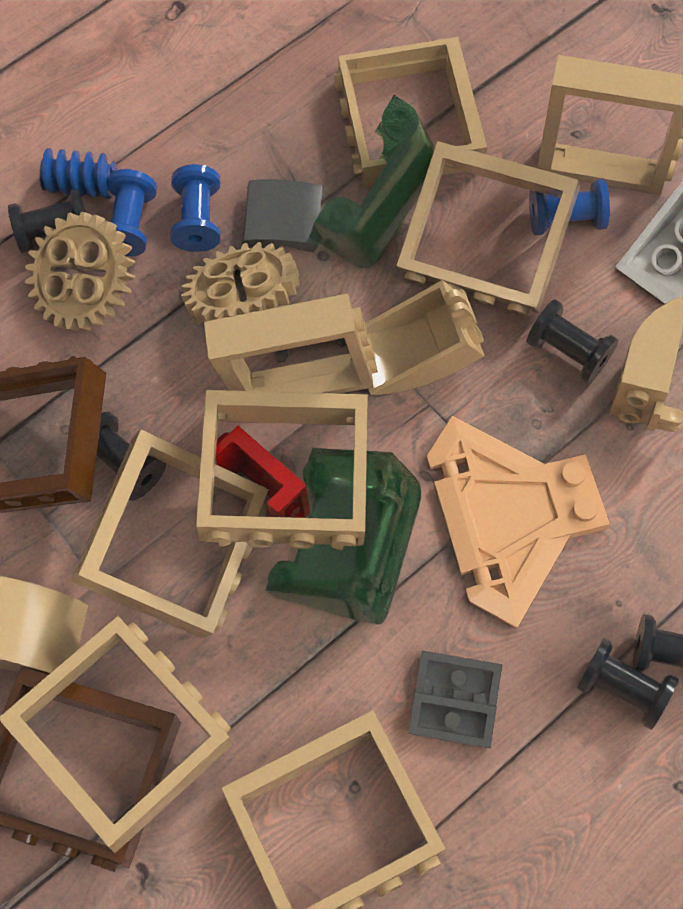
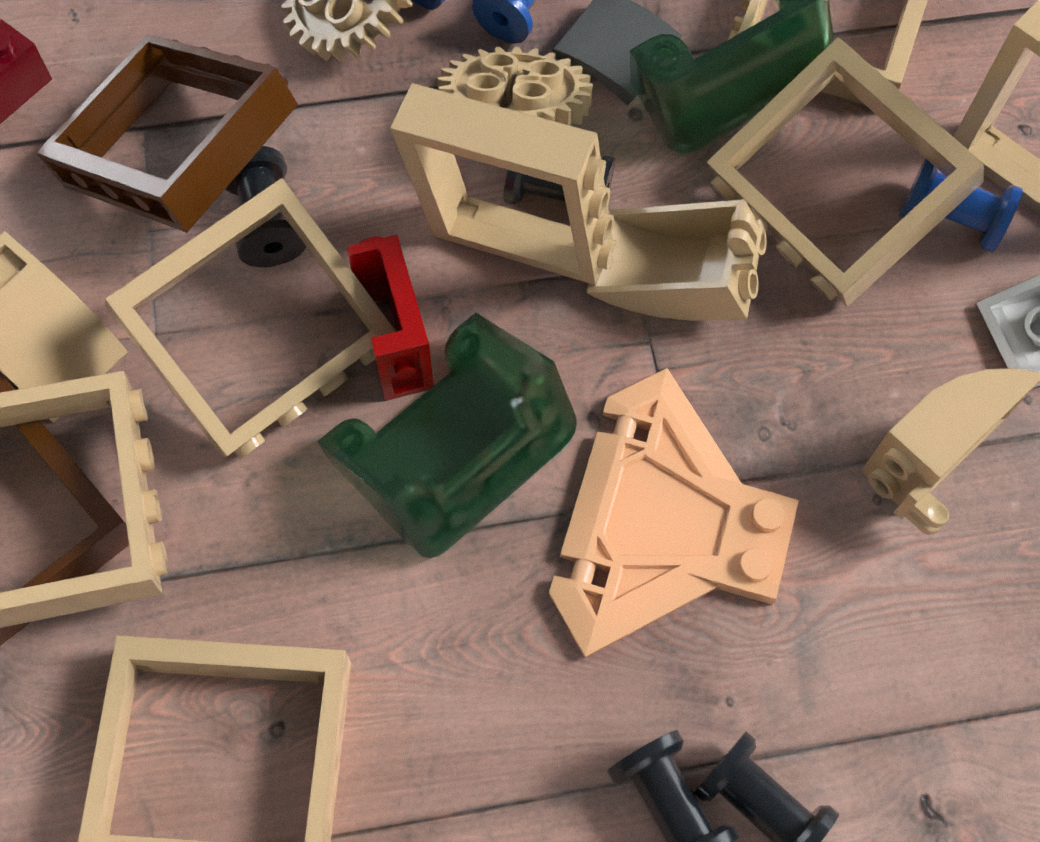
camera: 25 degrees right, 0 degrees up
(291, 409) = (448, 236): tan window -> none
(455, 699) = (457, 697): dark grey slope -> none
(572, 340) = (865, 358): black piece -> none

